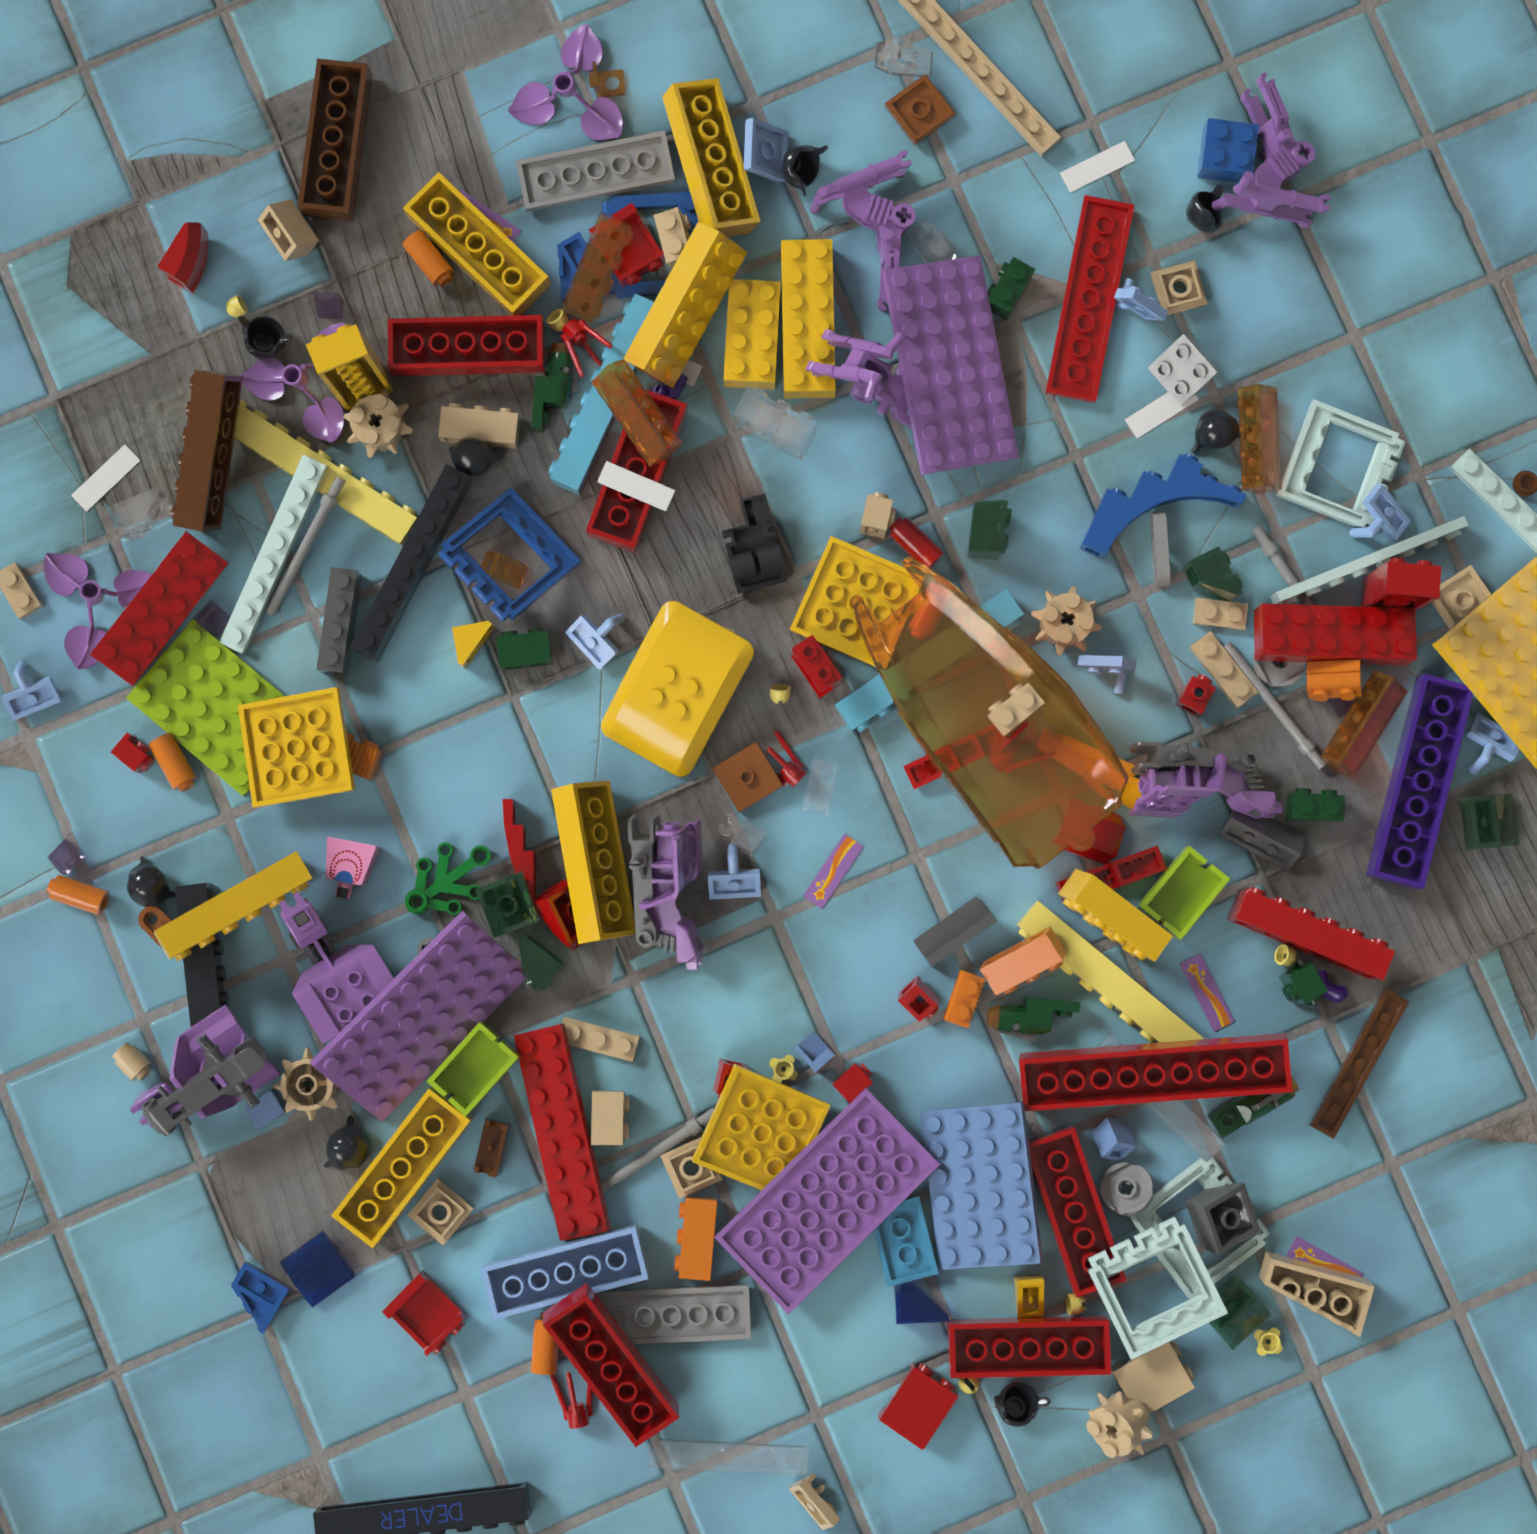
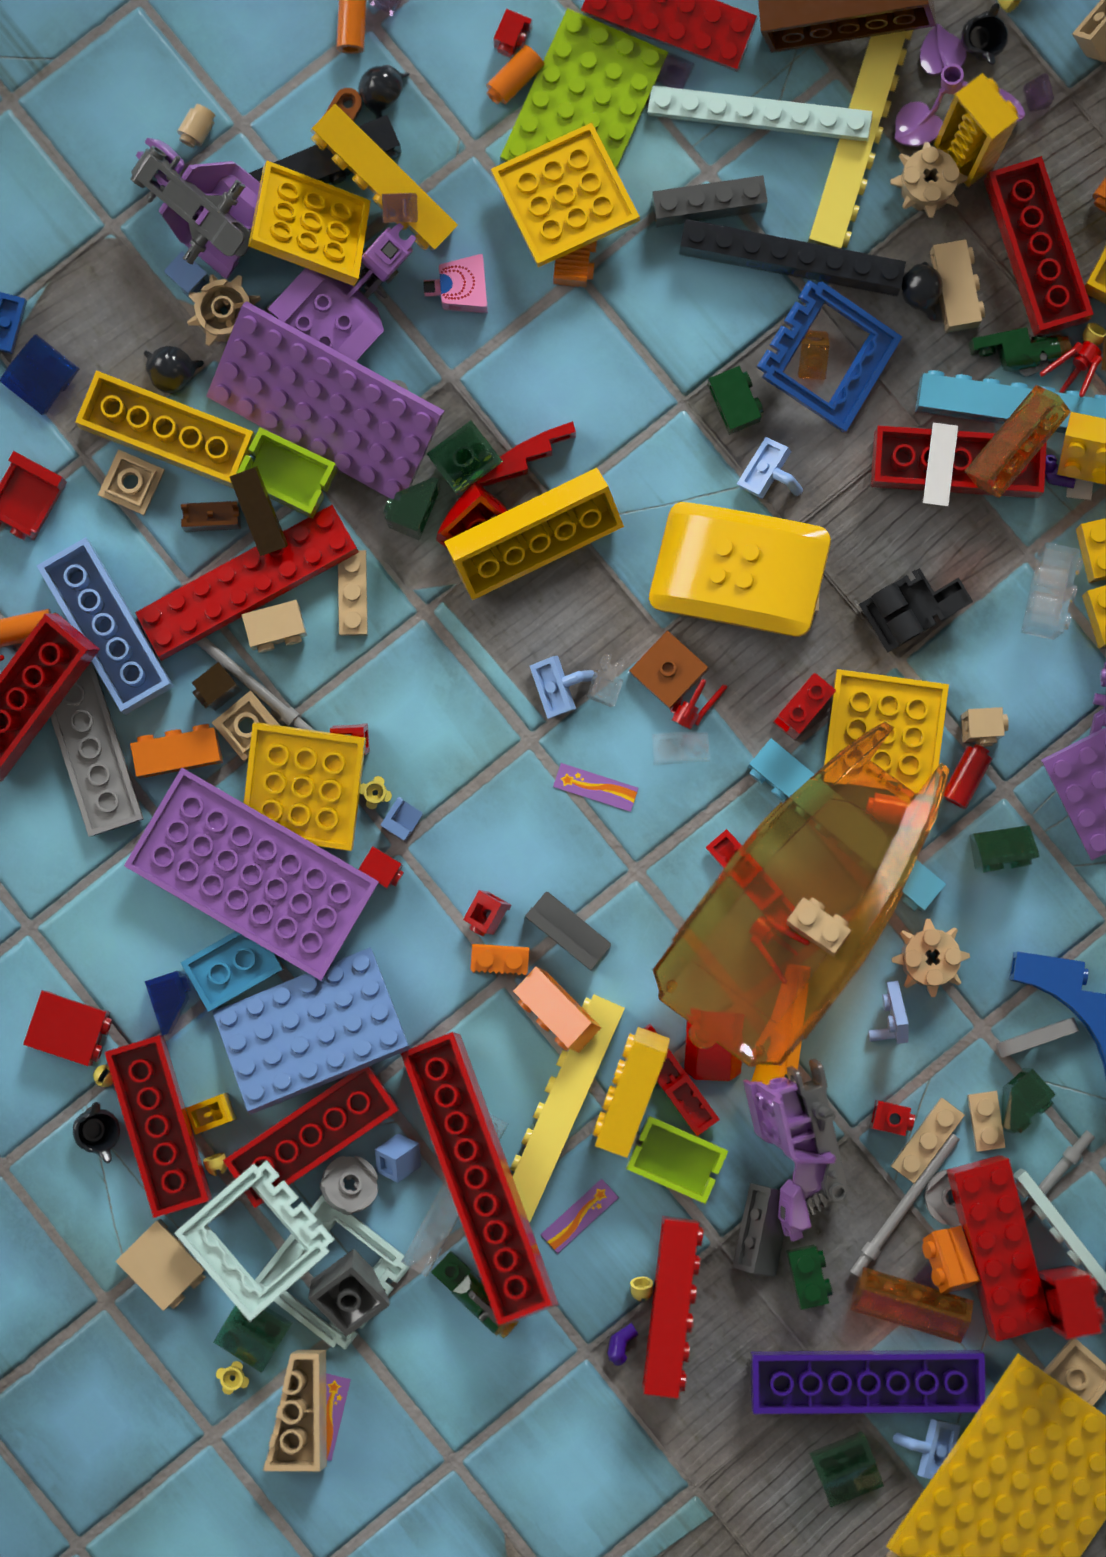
camera: 70 degrees right, 0 degrees up
(255, 984) = (310, 223): none -> yellow plate
(266, 899) = (399, 207): none -> slope
(328, 502) = (829, 152): light grey bar -> none
(444, 881) = (470, 387): green plant -> none
(470, 639) = (729, 341): yellow slope -> none
(502, 1103) = (258, 511): none -> dark brown tile
(649, 1186) = (215, 687): none -> dark brown brick
(661, 869) = (545, 604): medium lavender piece -> none
(780, 692) = (767, 678): light yellow hinge -> none
(1031, 1019) = (496, 1034): dark green plate -> none
(1119, 1425) = (104, 1241): tan brick -> none
(1303, 985) = (615, 1312): dark green brick -> none
(1359, 1063) = (550, 1396): reddish brown plate -> none

